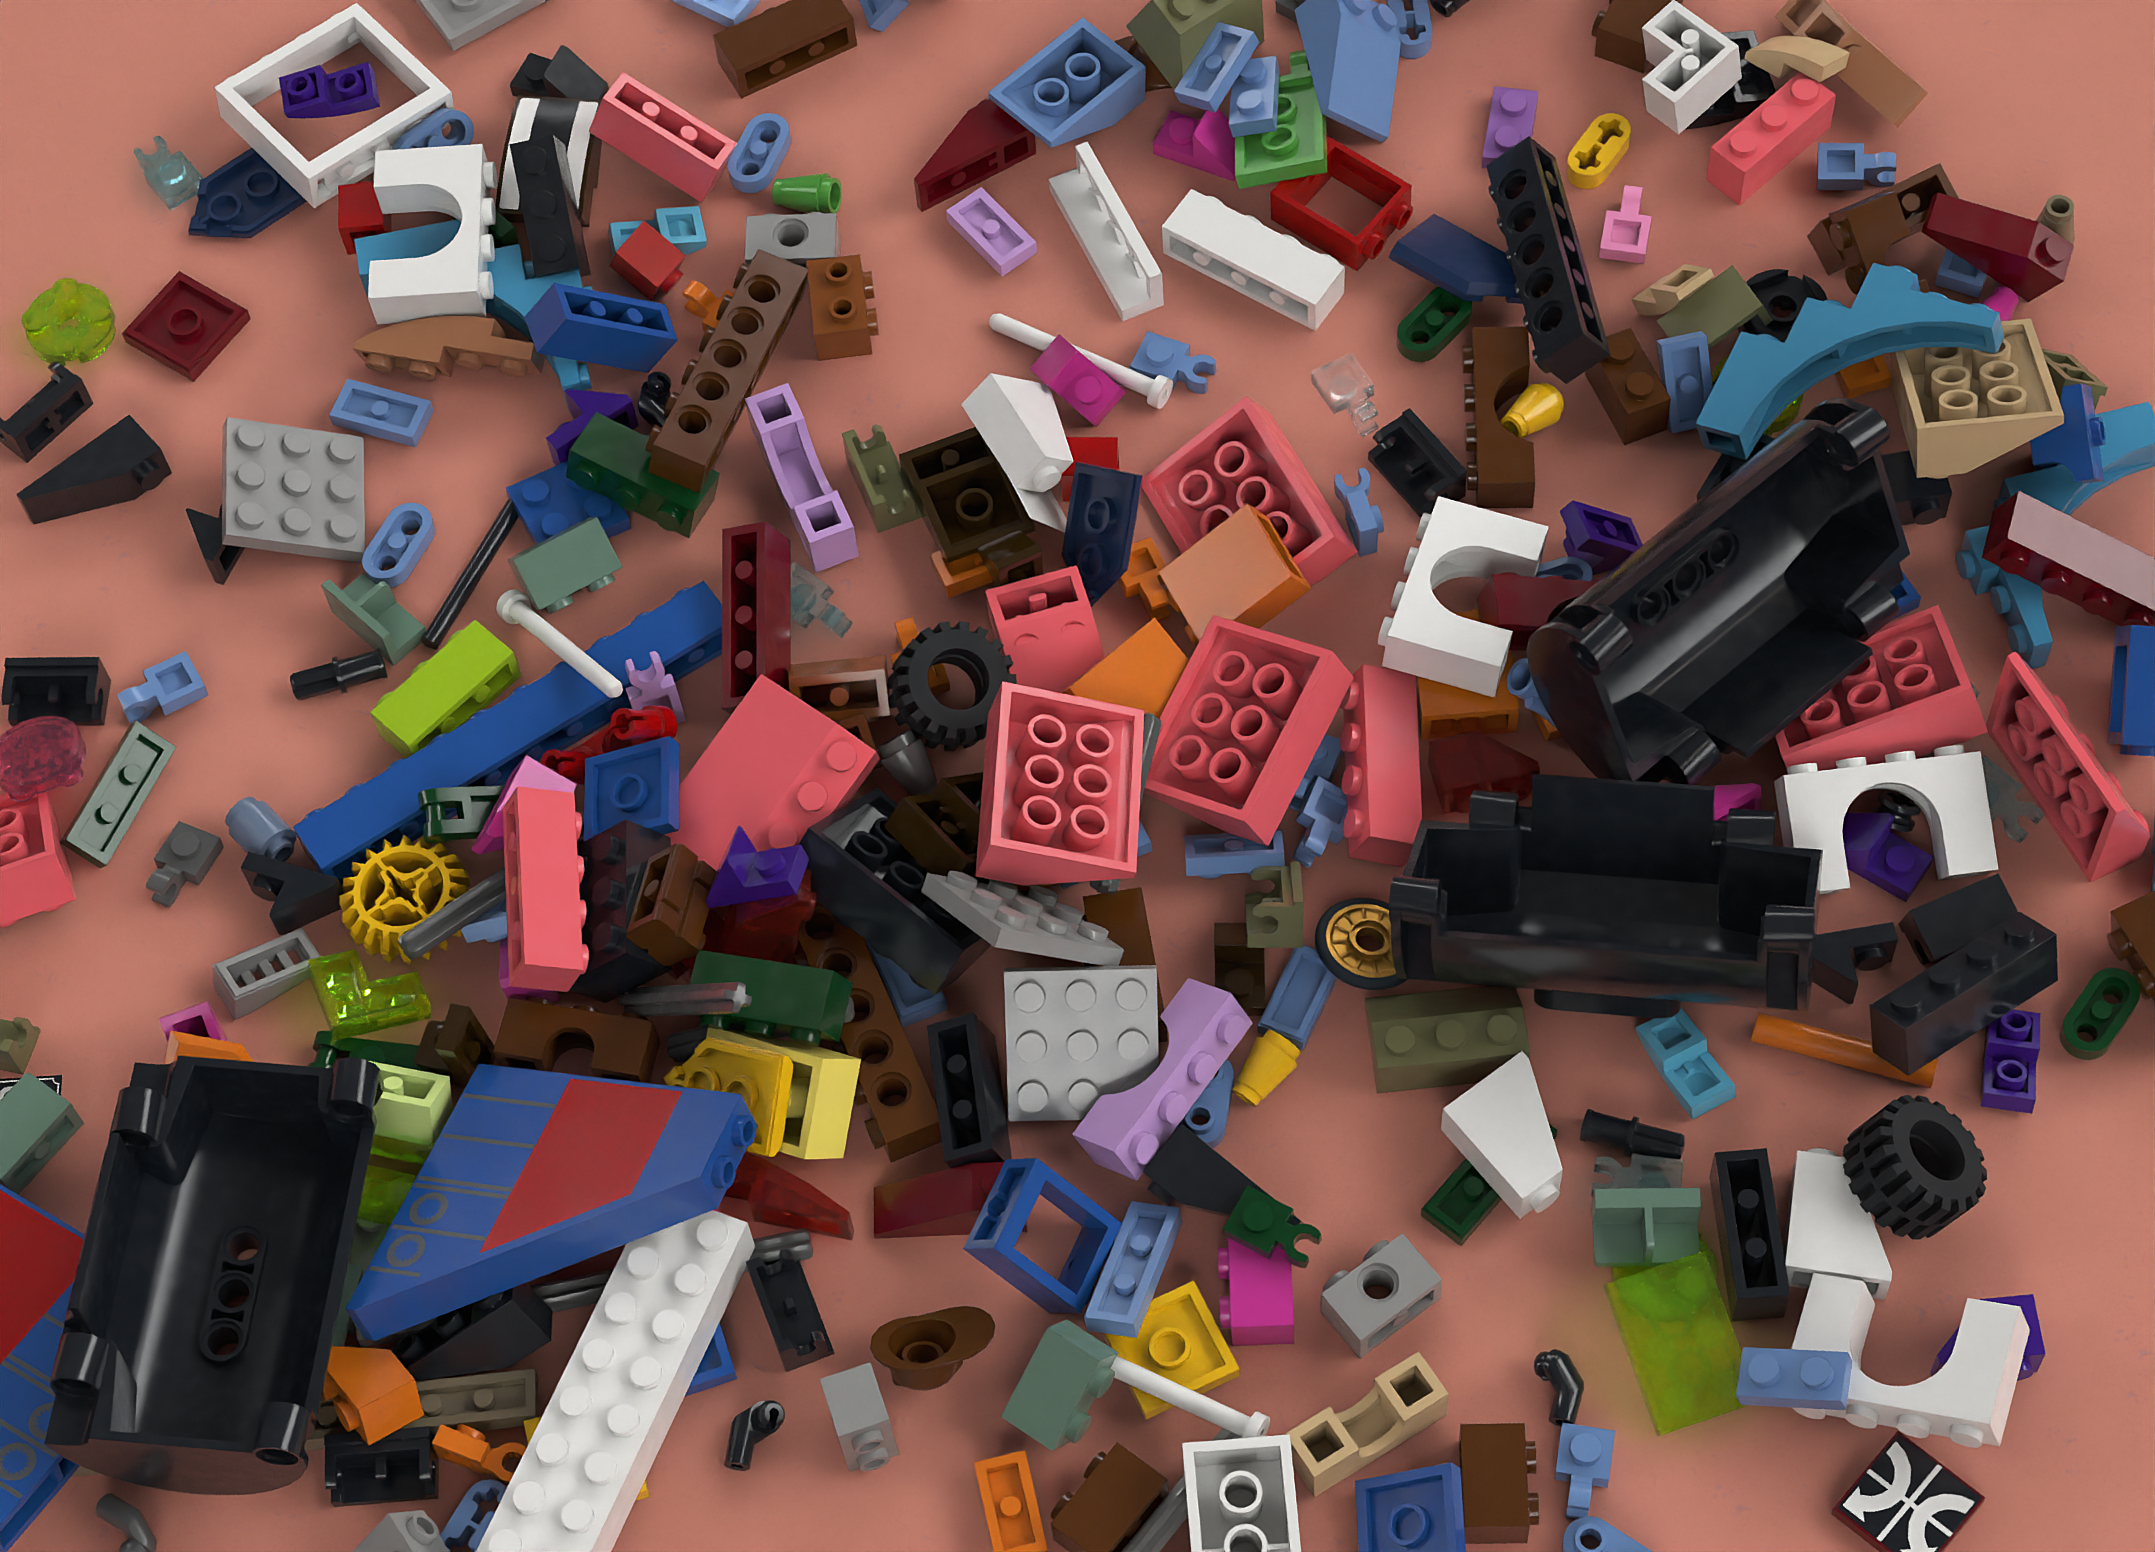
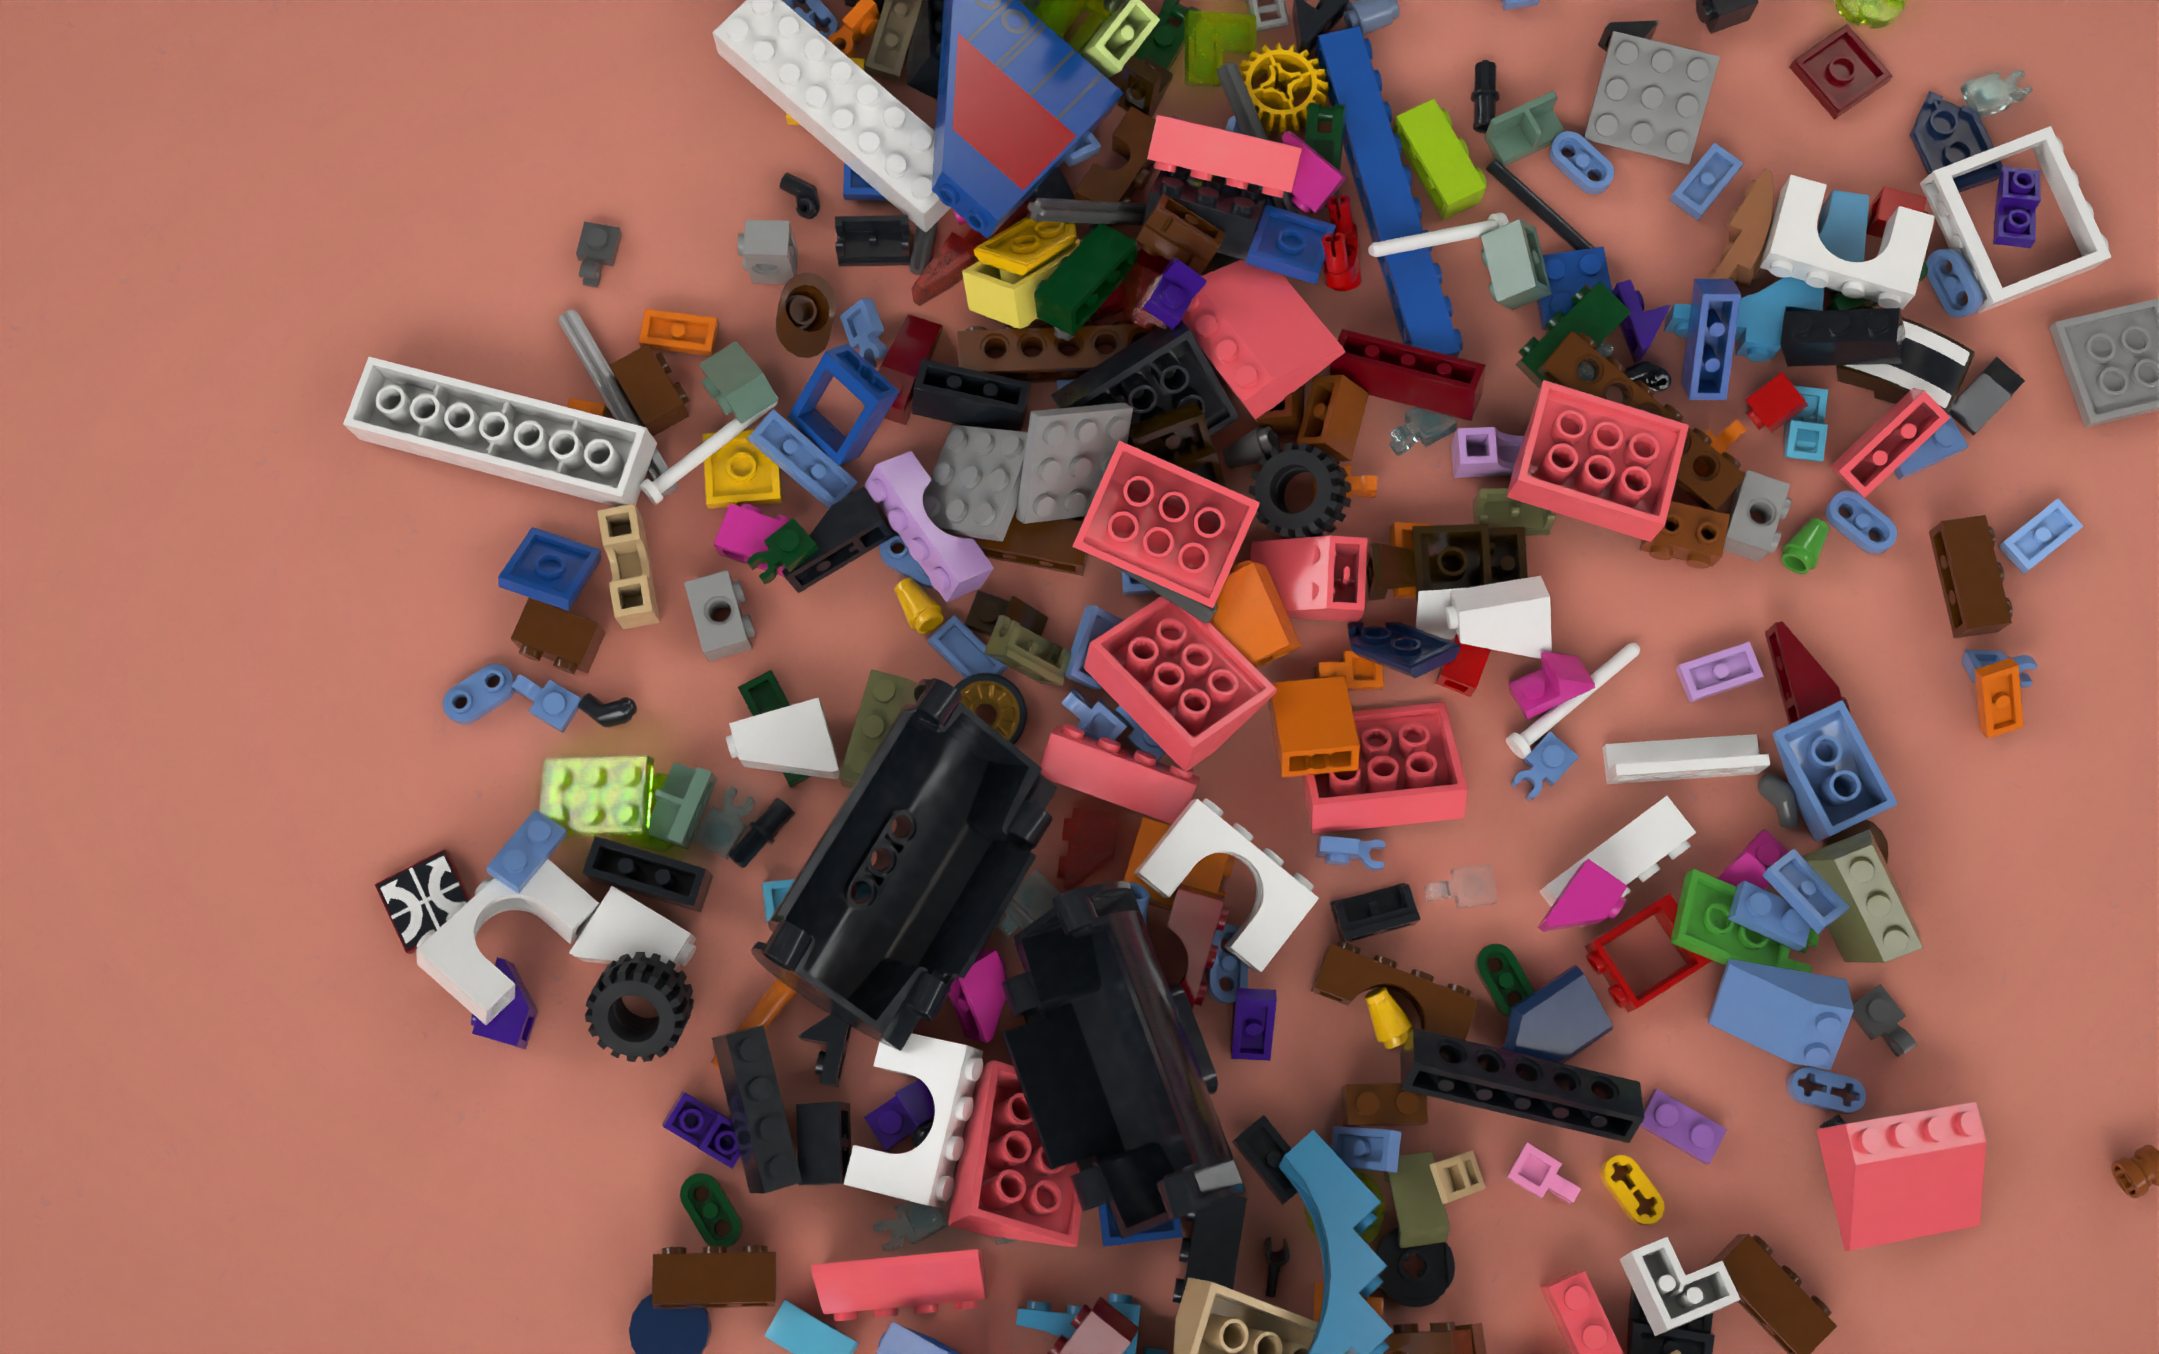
camera: 105 degrees right, 15 degrees up
(652, 687) = (1377, 291): lavender plate -> none
(802, 382) = (1598, 461): none -> coral slope
(916, 1272) = (862, 330): none -> medium blue plate
(1111, 135) = (1782, 797): none -> dark grey arm
(1321, 256) = (1585, 899): none -> dark pink slope

